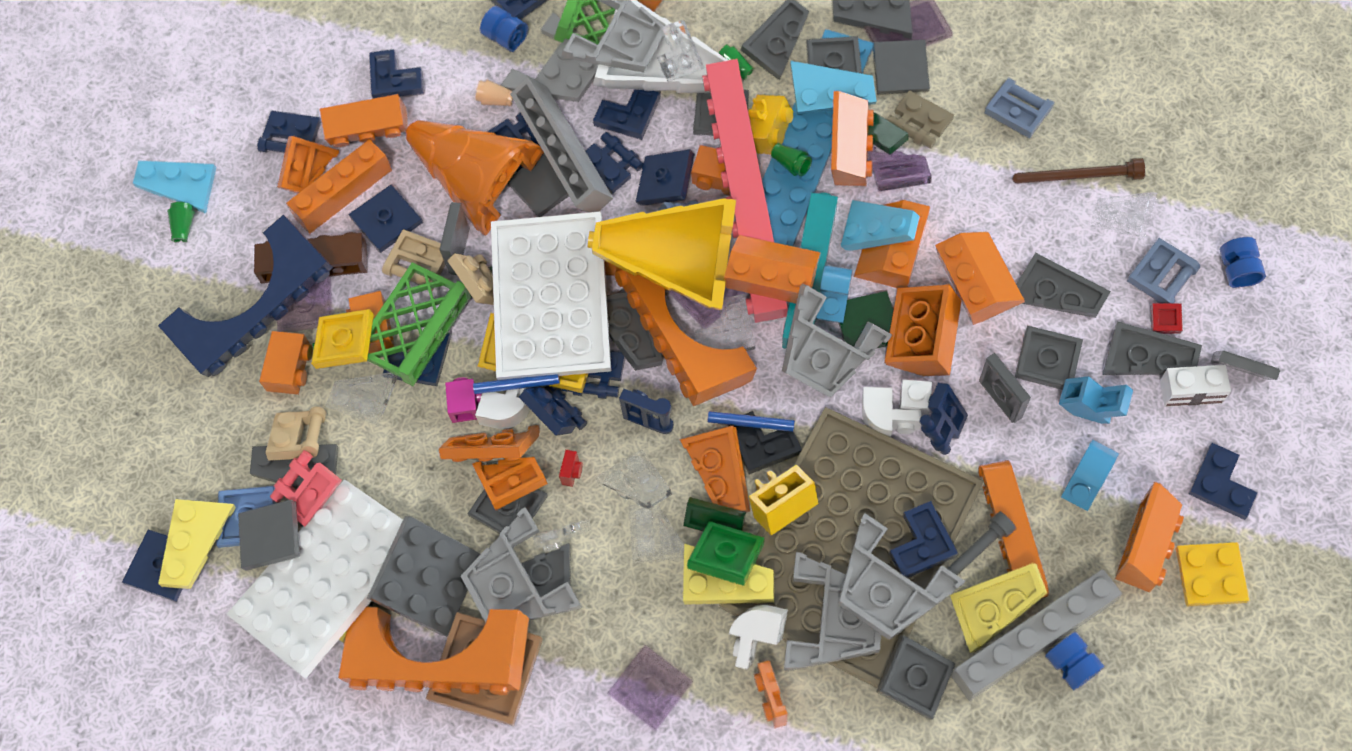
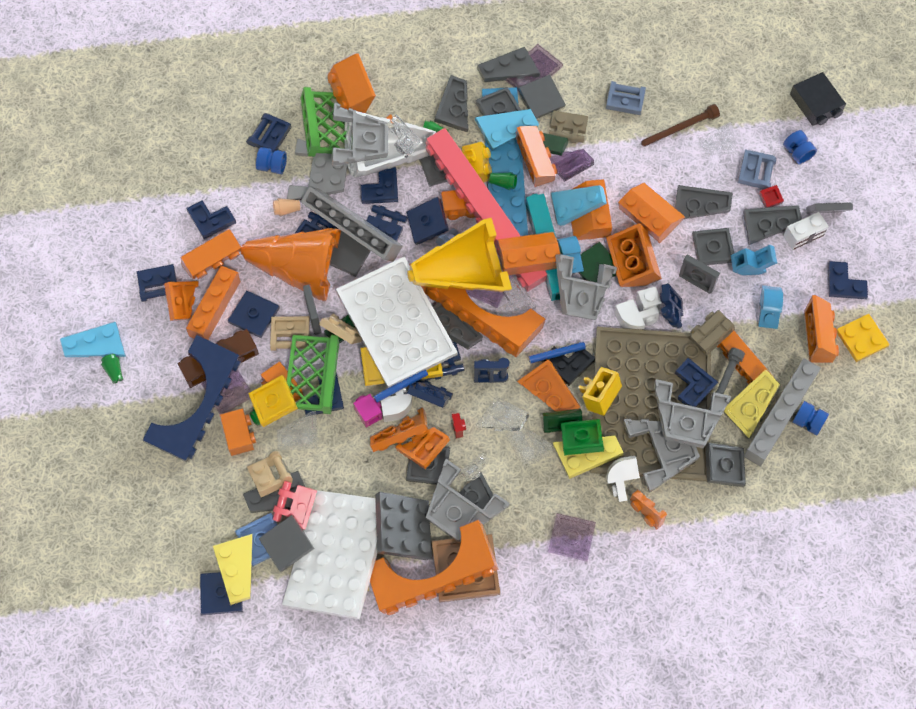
camera: 30 degrees left, 0 degrees up
(981, 477) = (712, 331): none -> dark tan brick
(1302, 204) = (818, 99): none -> black brick

